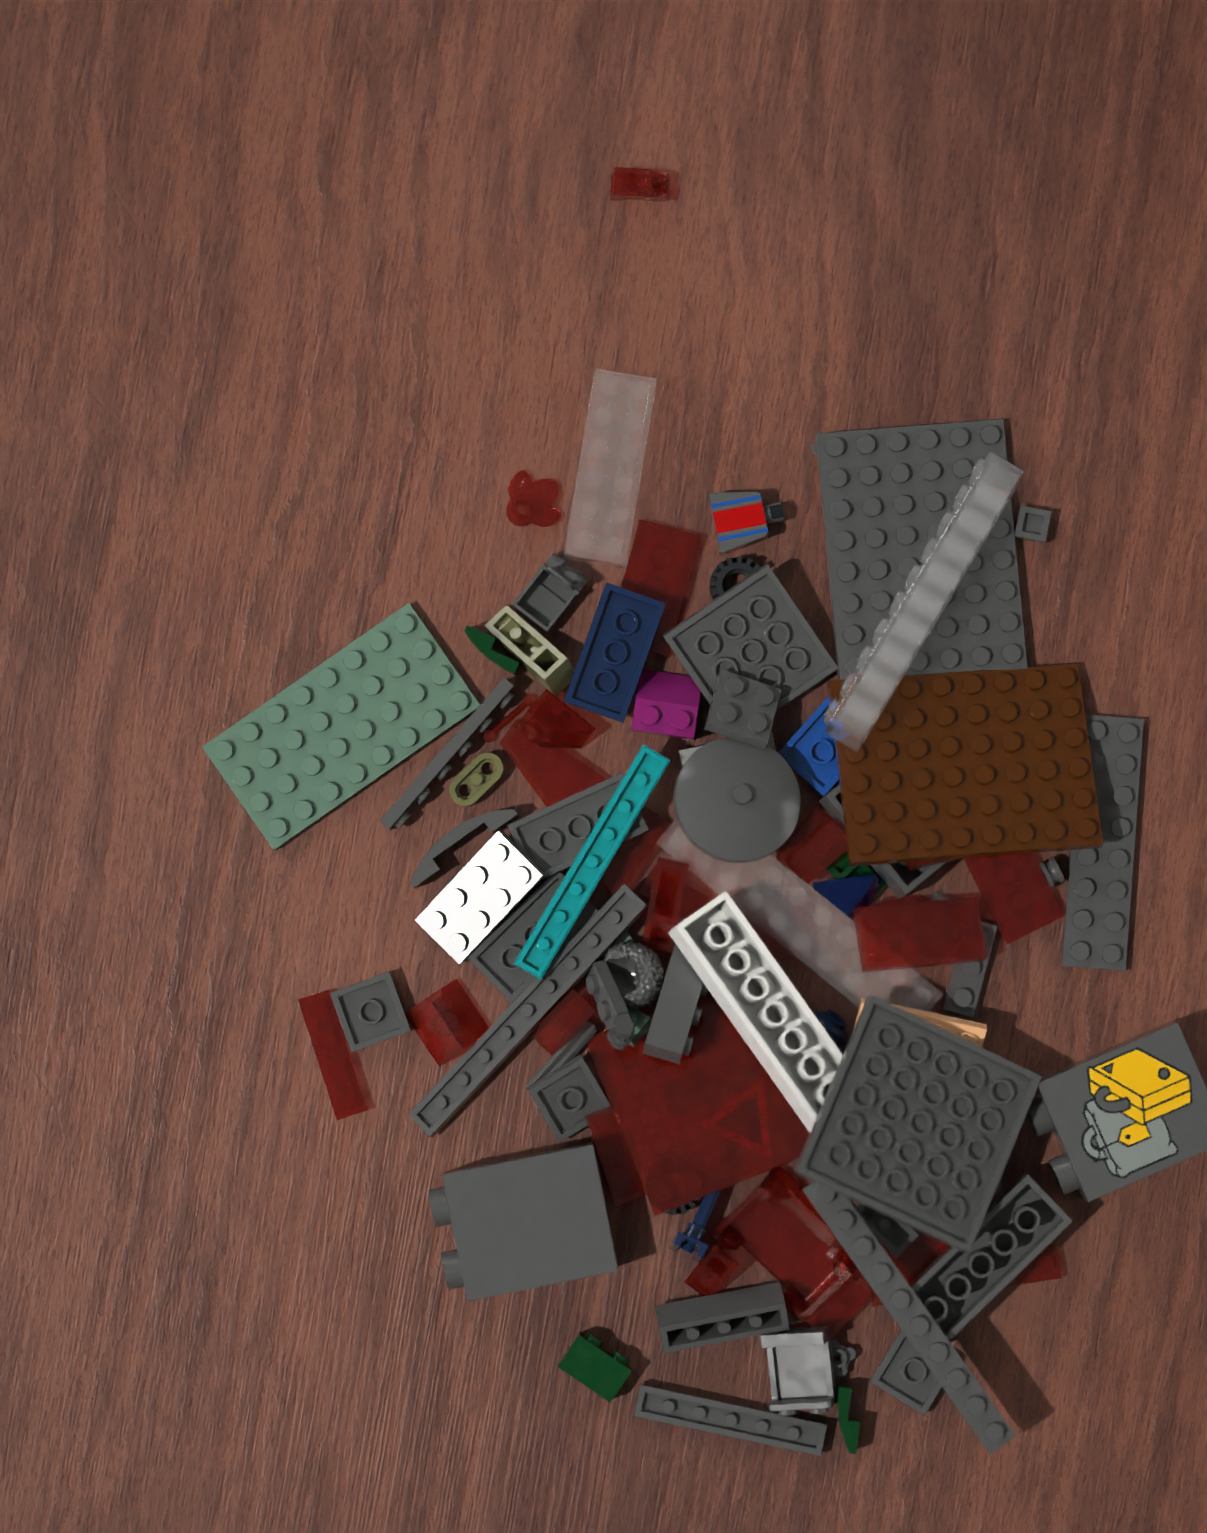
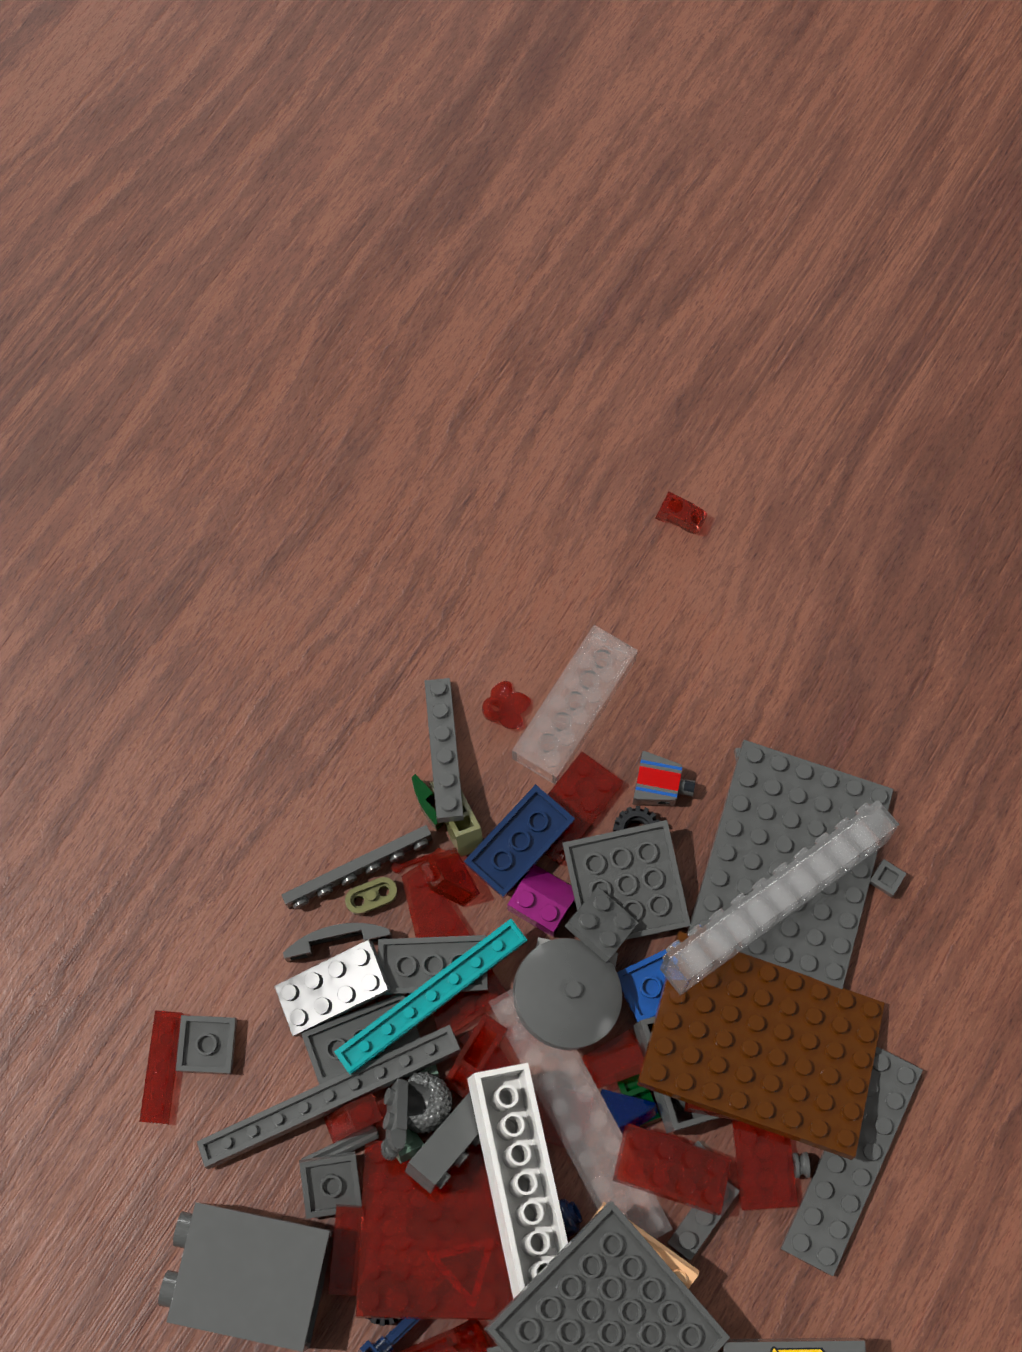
camera: 20 degrees right, 15 degrees down
(341, 726) = (286, 814): sand green plate -> none
(447, 1022) = (262, 1078): clear red slope -> none
(485, 583) = (443, 750): none -> dark grey plate
(550, 592) = (490, 778): dark grey piece -> none

